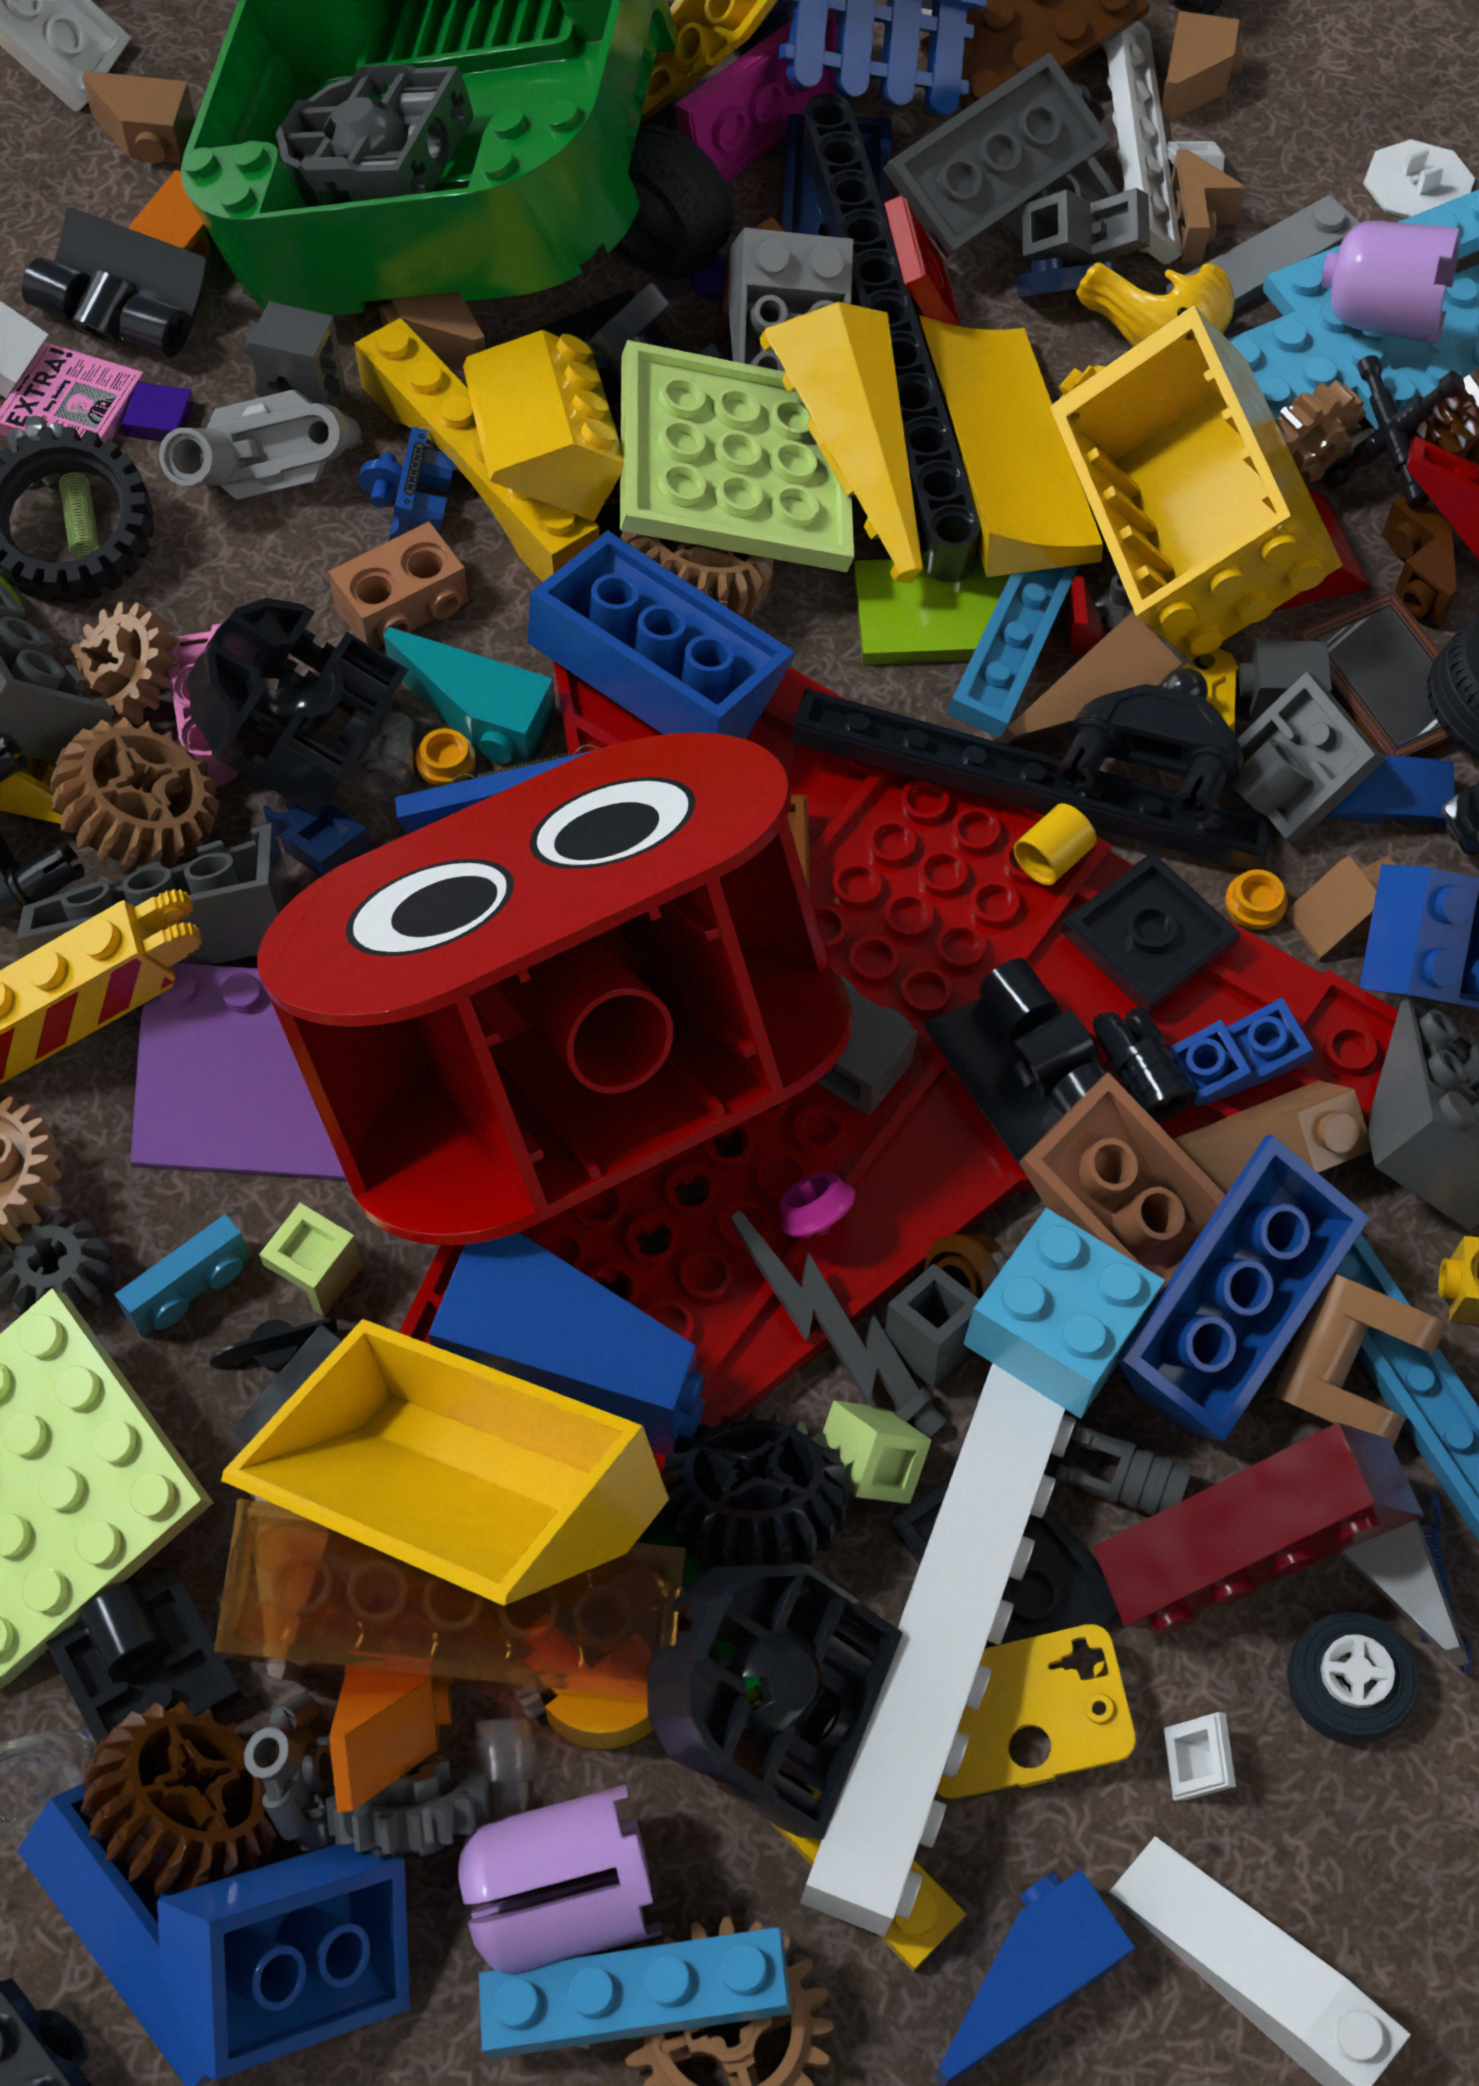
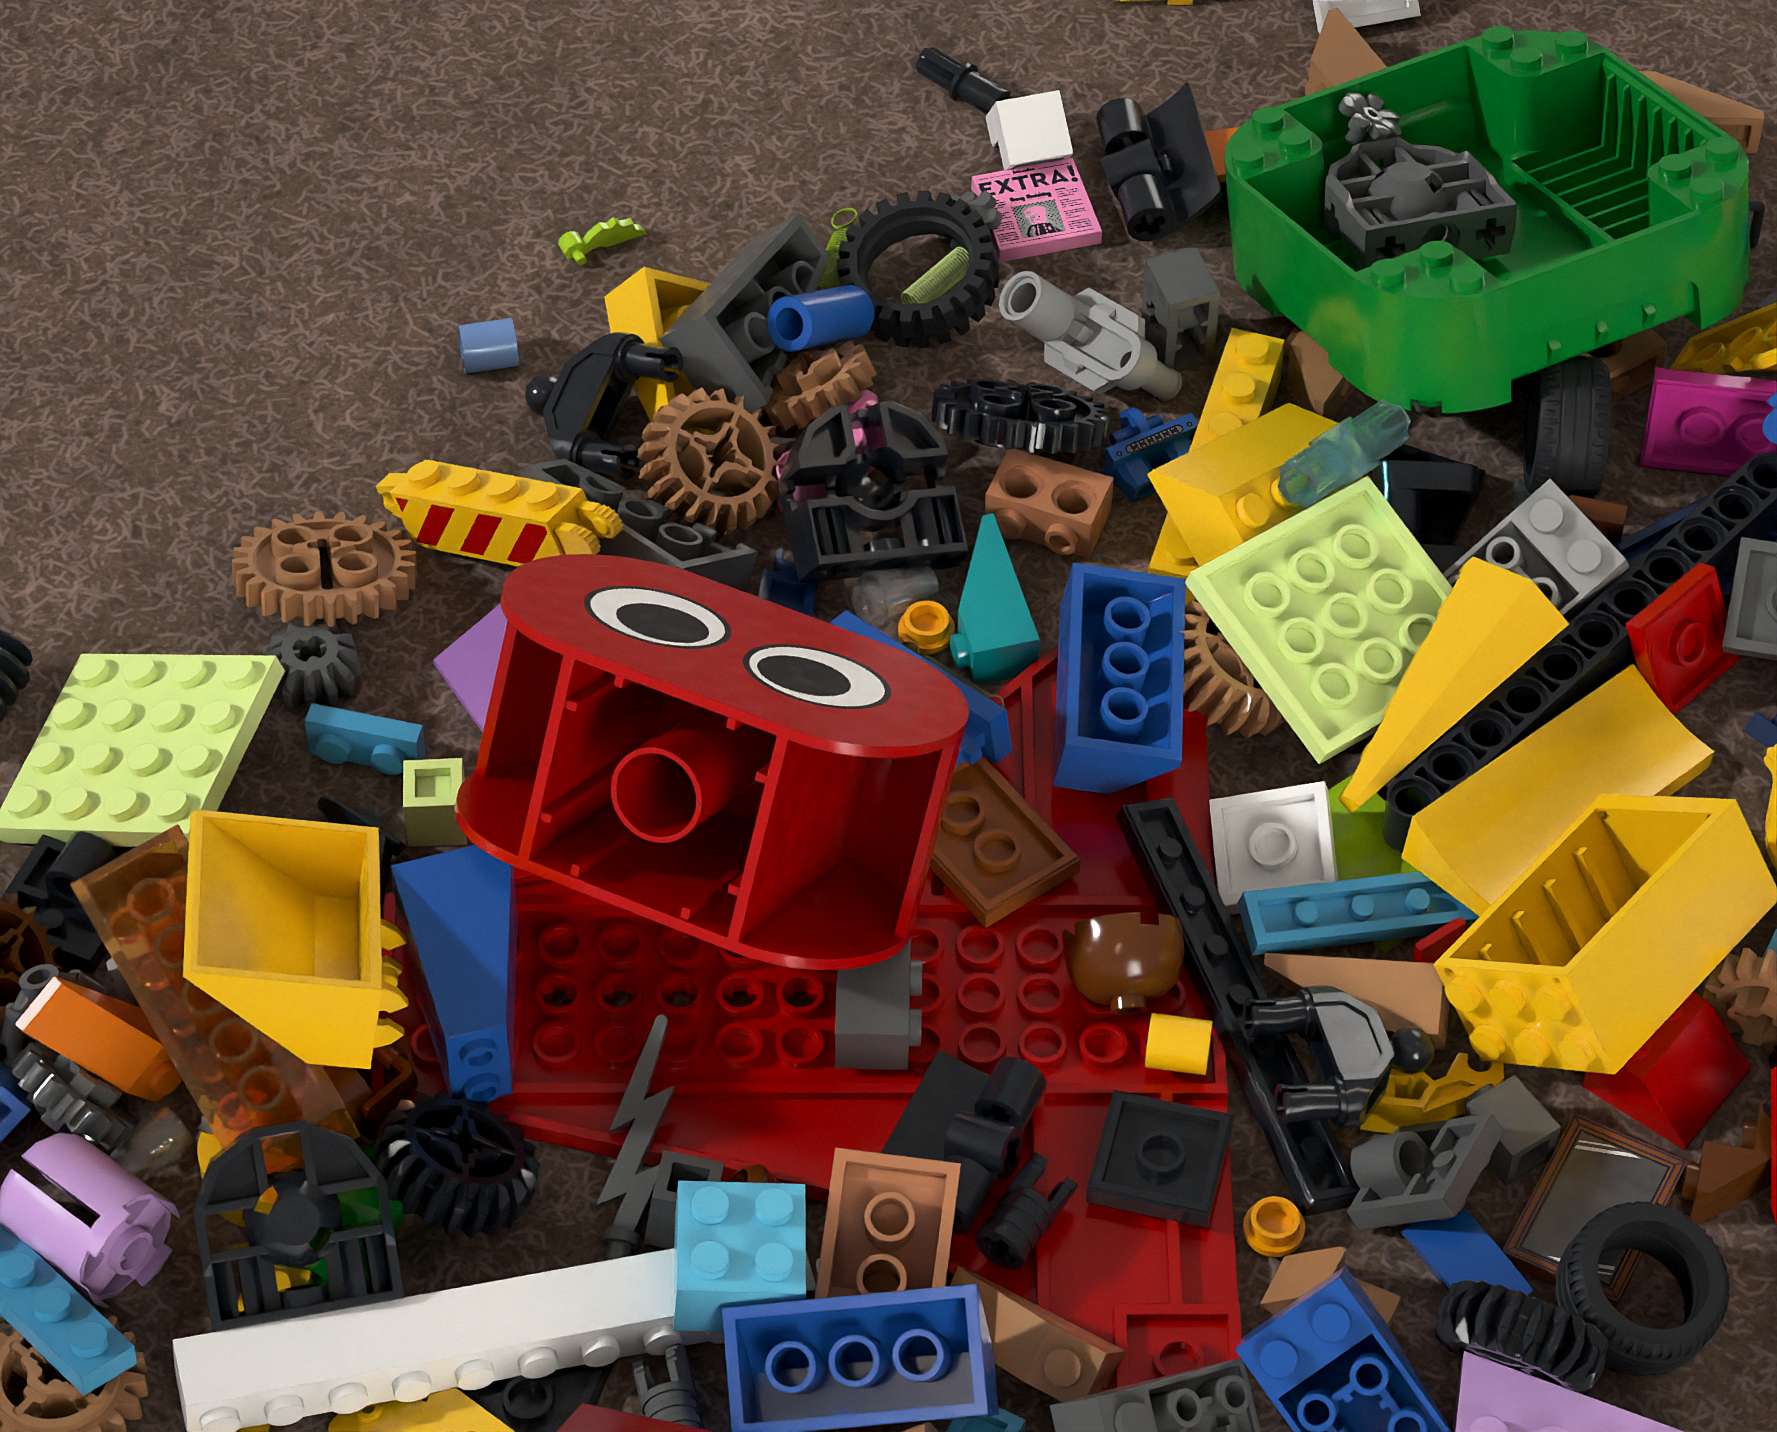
camera: 55 degrees right, 10 degrees down
(63, 613) = (820, 318): none -> blue brick
(157, 411) = (1077, 265): dark purple tile -> none
(253, 110) = (1368, 118): none -> dark grey plant
(304, 542) = (1049, 421): none -> black gear
(588, 341) = (1344, 453): none -> clear light blue piece
(815, 1204) = (717, 1066): dark pink hat -> none
(877, 1451) = (558, 1229): yellowish green panel -> none
(896, 653) = (1272, 840): none -> white plate
(954, 827) = (1124, 961): none -> reddish brown cylinder
(1244, 1054) = (1087, 1275): blue slope -> none

